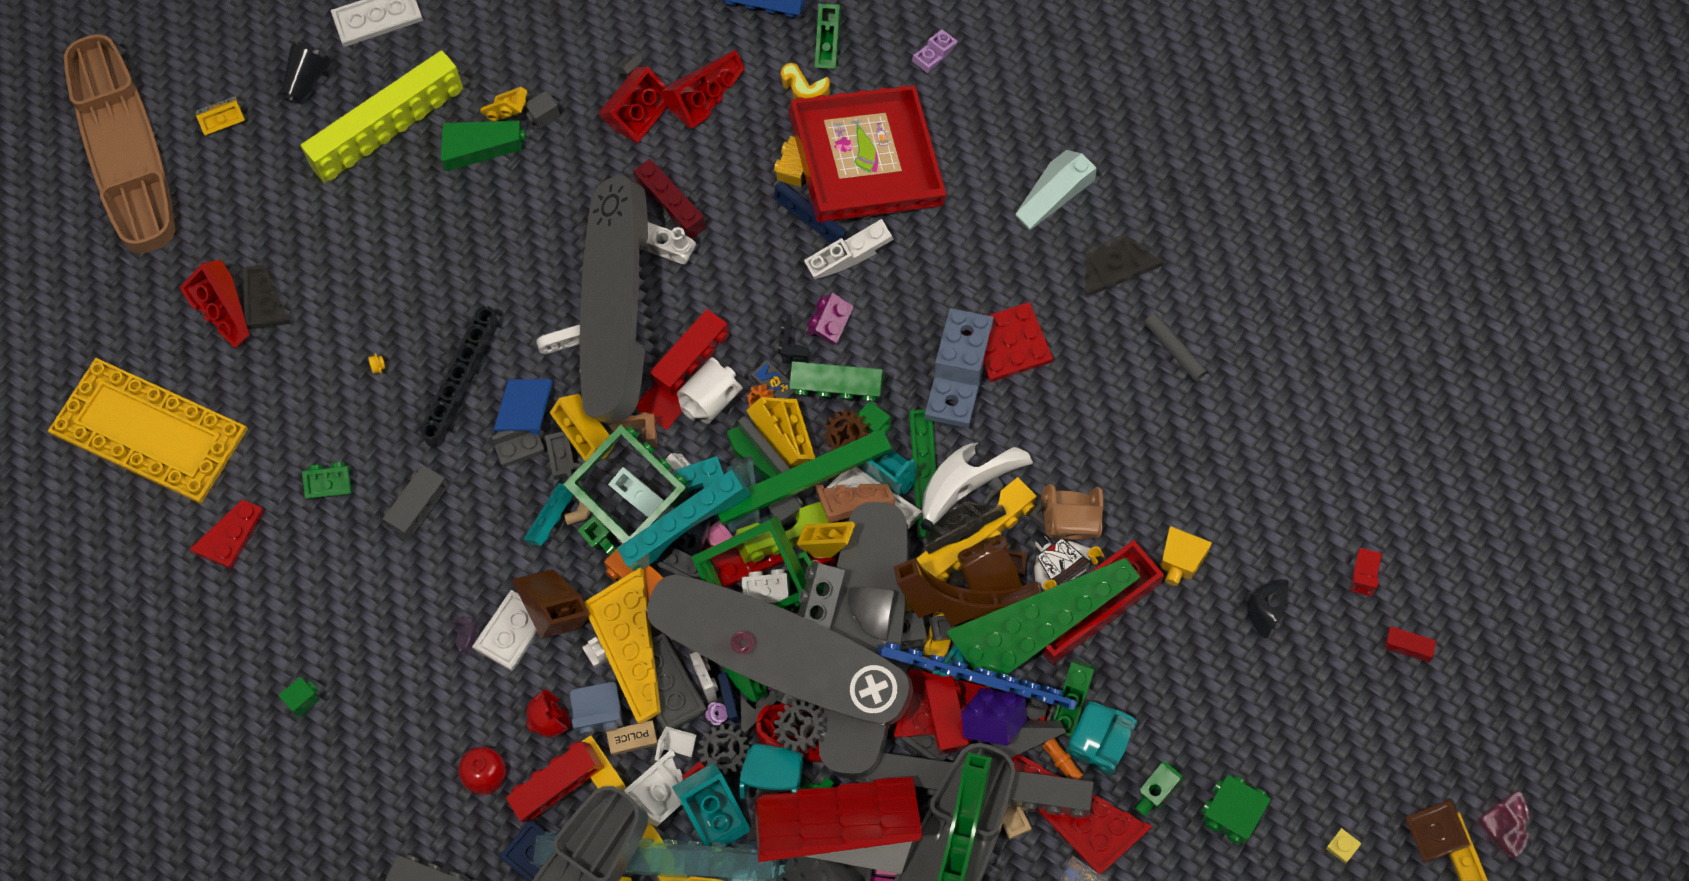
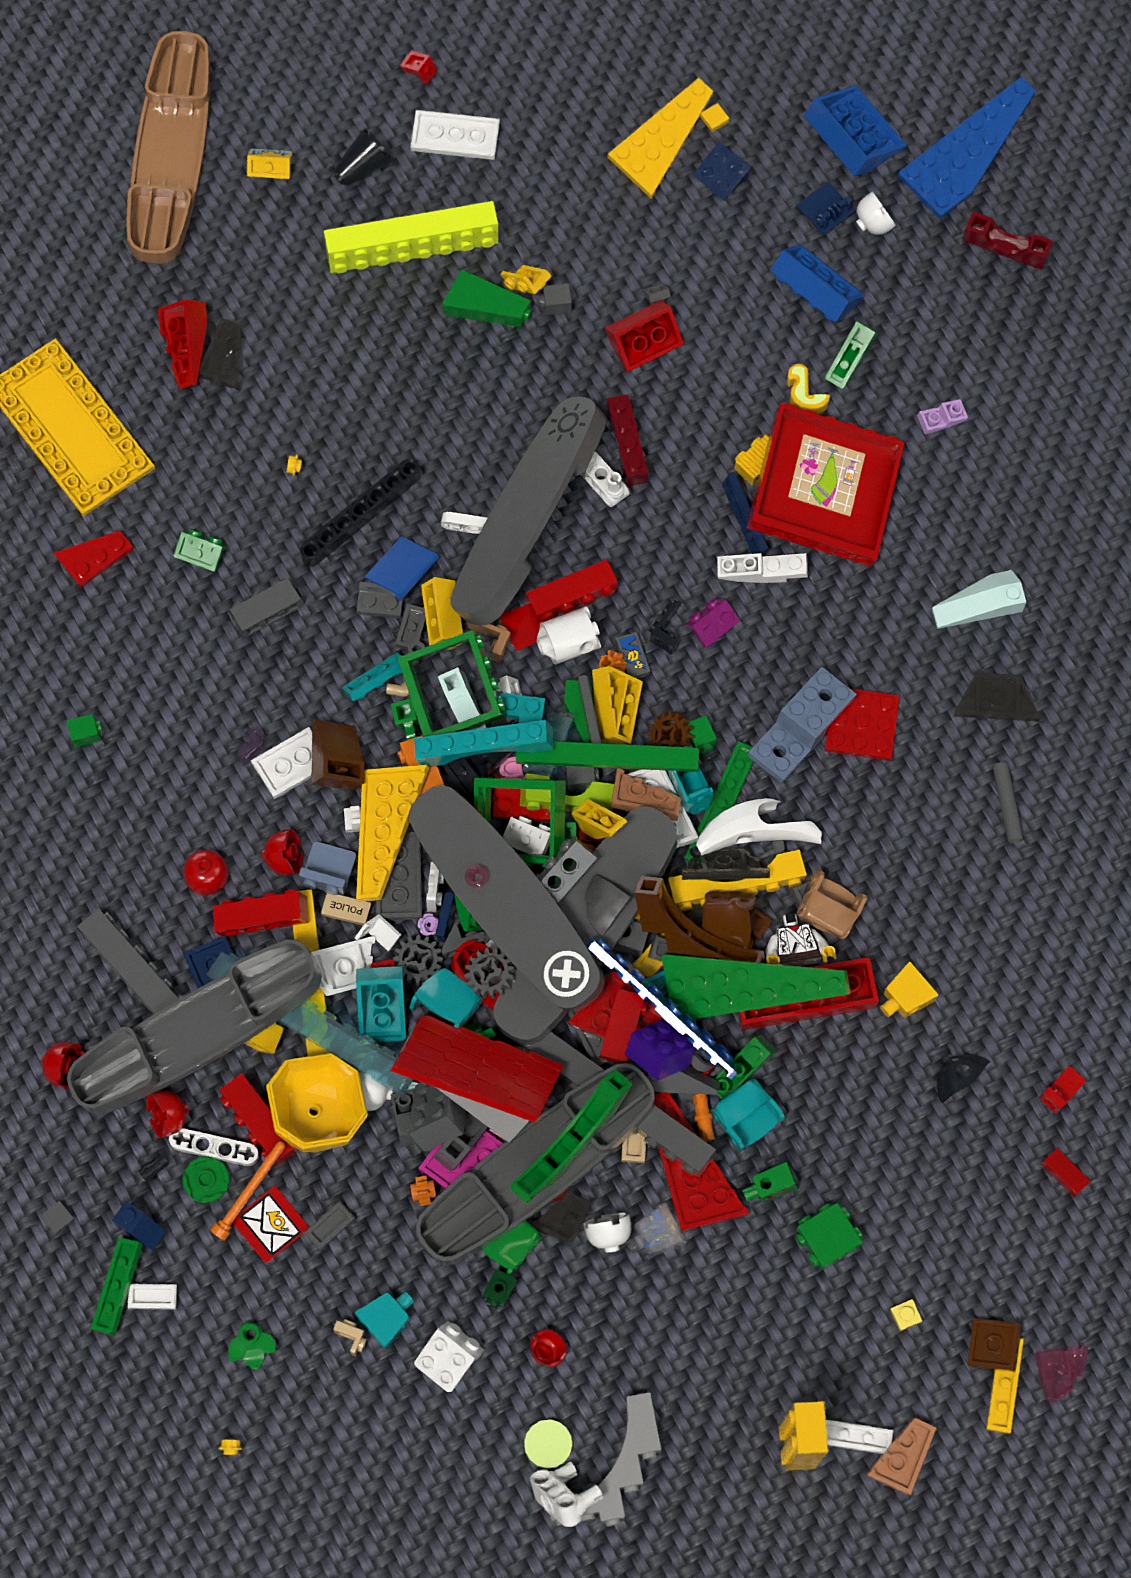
camera: 20 degrees right, 5 degrees up
(698, 92) = (704, 351): red wedge -> none
(836, 379) = (687, 682): green slope -> none

